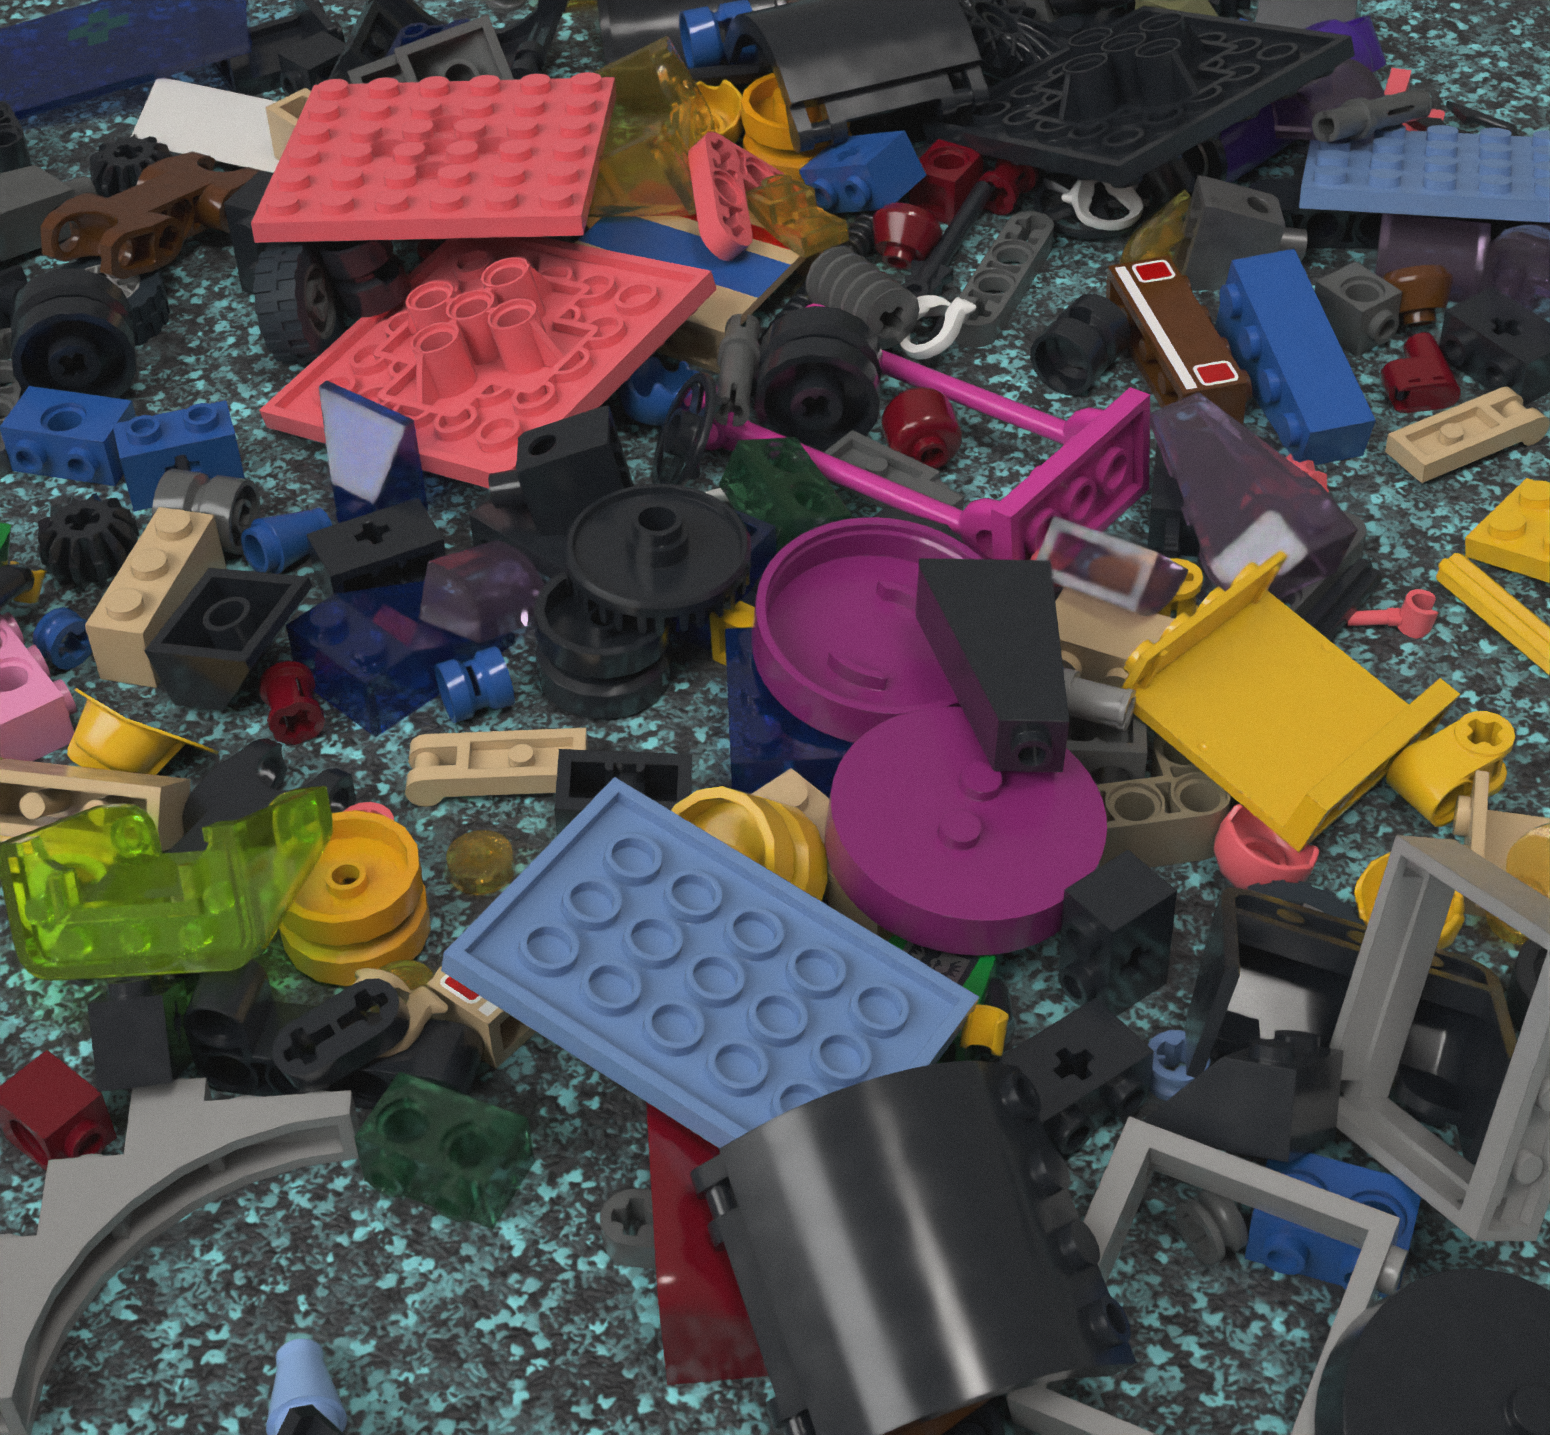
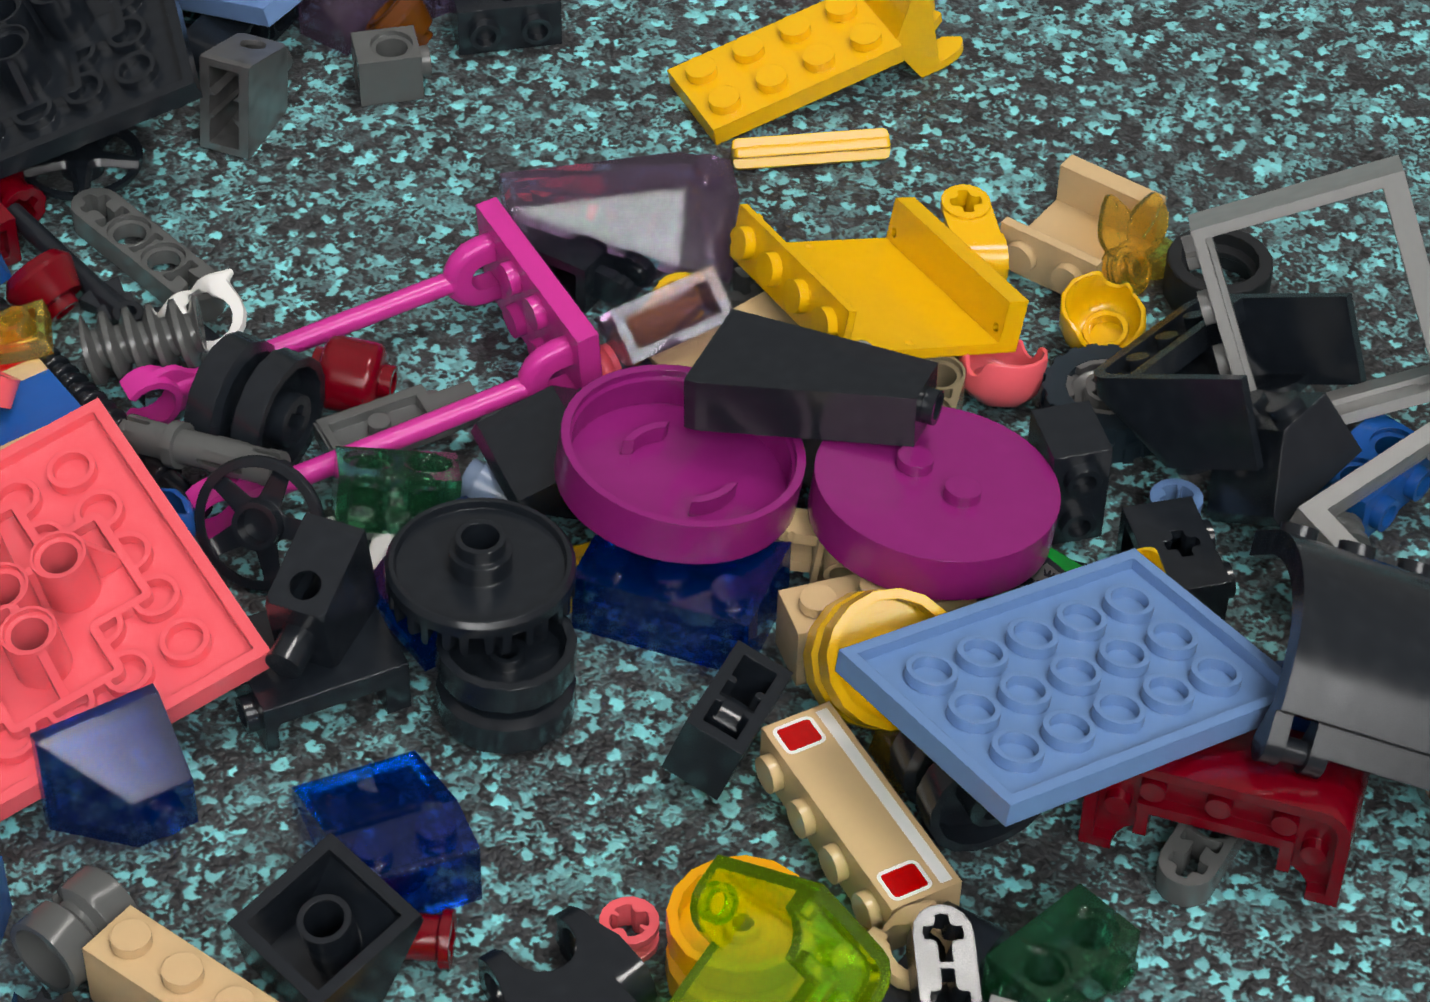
camera: 70 degrees left, 0 degrees up
(281, 540) = (157, 881): blue cone -> none
(375, 549) = (245, 813): black brick -> none
(474, 684) = (487, 788): blue wheel -> none
(480, 862) = (706, 843): clear yellow tile -> none
(481, 591) = (379, 741): clear purple brick -> none
(487, 763) = (600, 807): tan plate -> none
(1080, 344) = (310, 236): black wheel -> none
(1081, 198) = (87, 159): white piece -> none
(1159, 232) = (193, 139): clear yellow slope -> none
(1175, 337) = (349, 184): reddish brown brick -> none
(1293, 358) = (437, 122): blue wedge -> none
(1412, 619) = (775, 197): coral hand -> none
(1421, 379) = (499, 72): dark red piece -> none
(1466, 434) = (590, 79): tan plate -> none

